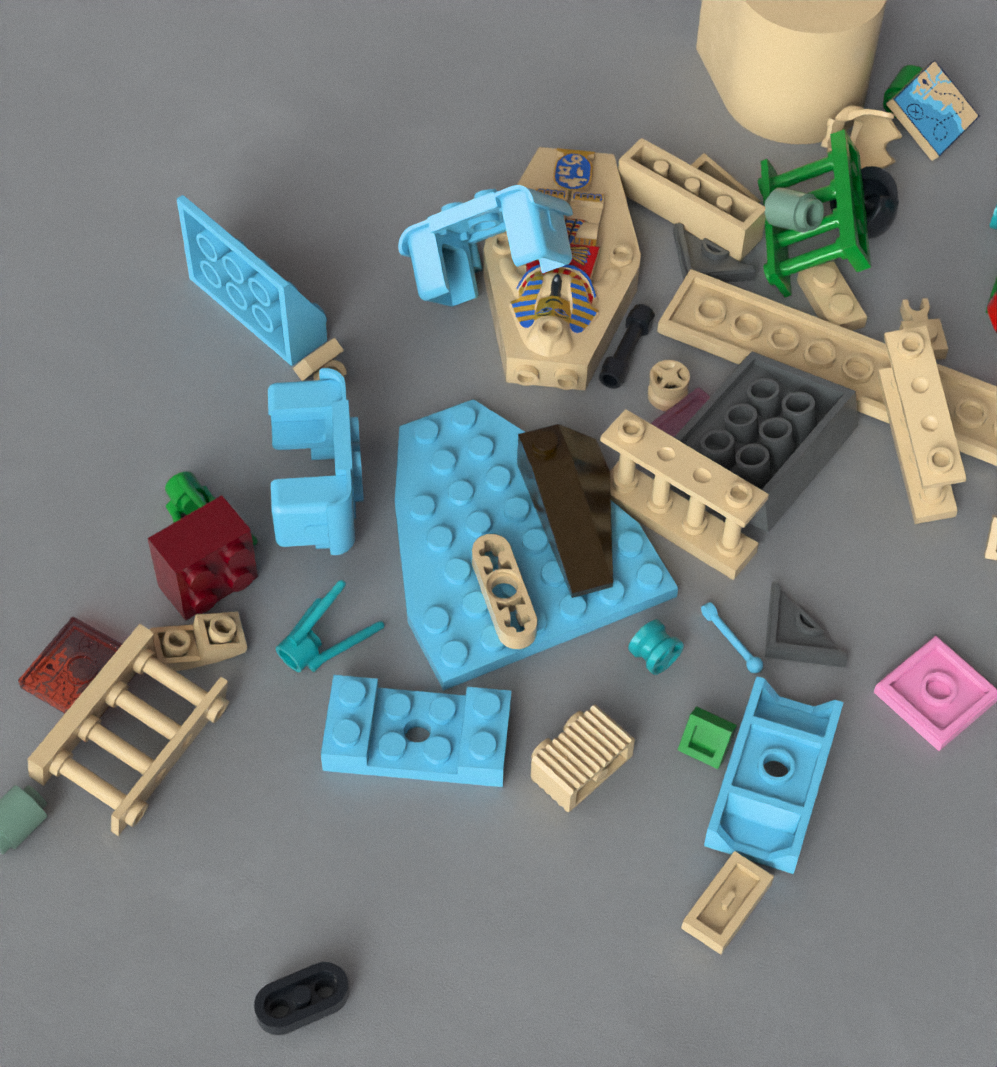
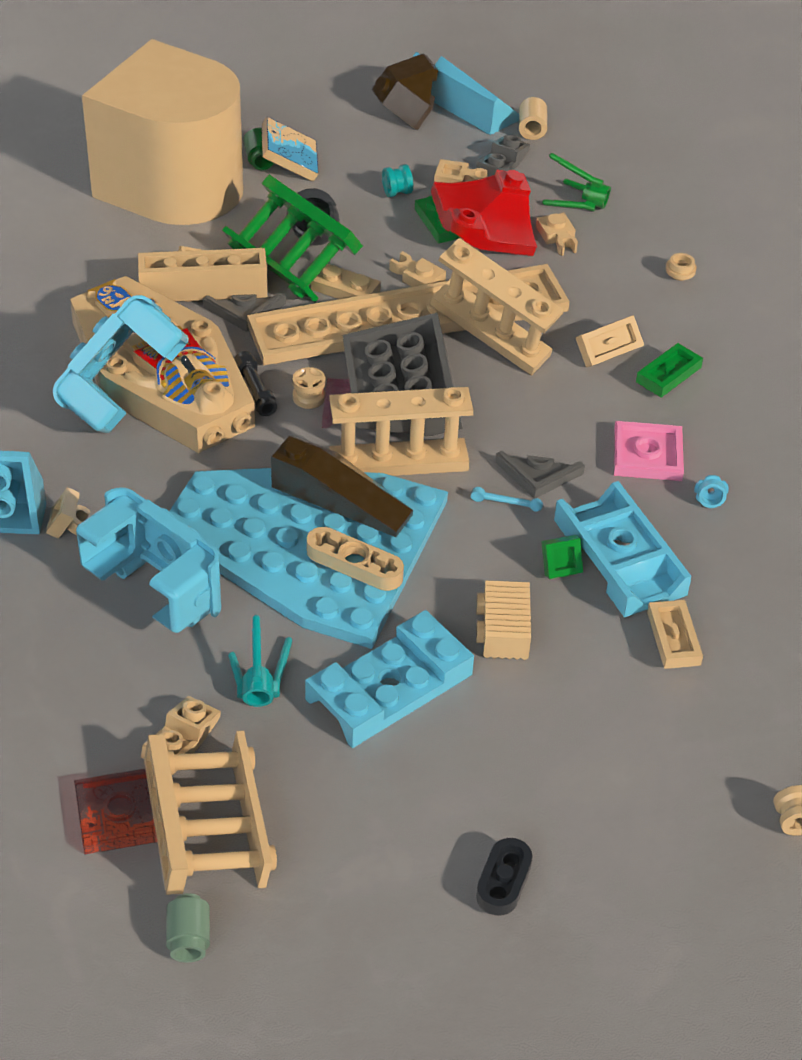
camera: 45 degrees left, 10 degrees down
(187, 495) = (71, 650): green plant -> none
(203, 557) = (138, 672): dark red brick -> none
(655, 647) = (475, 530): teal wheel -> none
(793, 210) = (283, 239): sand green brick -> none
(869, 134) = (258, 173): tan helmet -> none
(946, 786) = (714, 498): none -> medium azure plate

